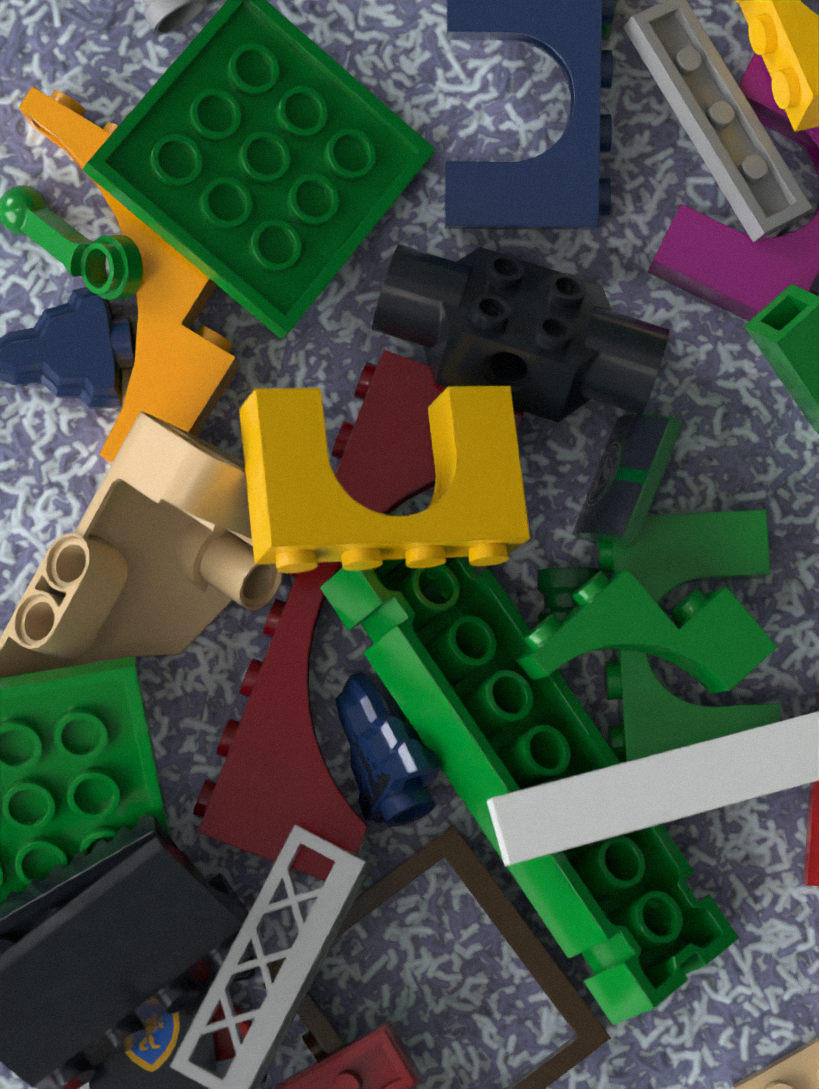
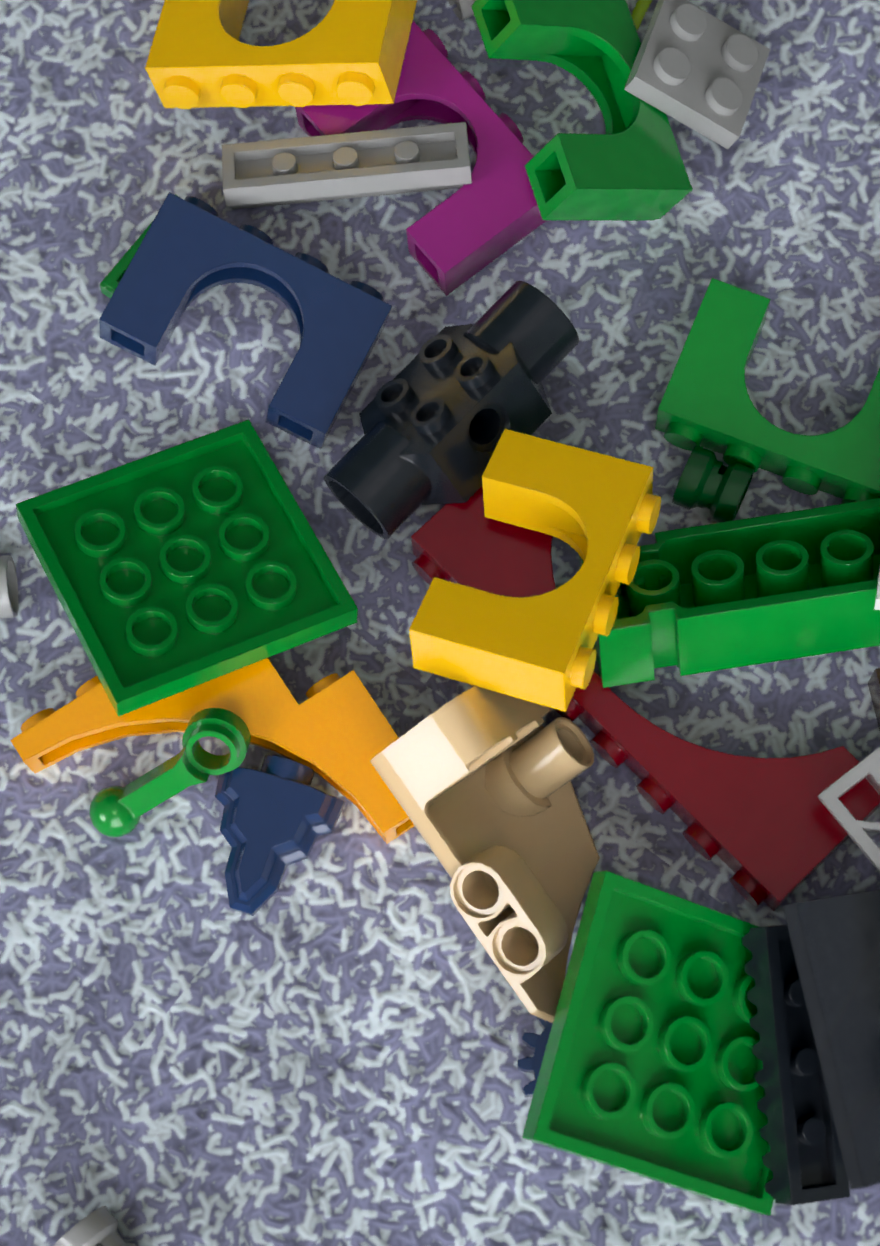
camera: 55 degrees left, 10 degrees down
(385, 755) = (784, 704): dark blue rock -> none
(627, 479) = (630, 380): black slope -> none
(709, 639) = (801, 373): green arch -> none

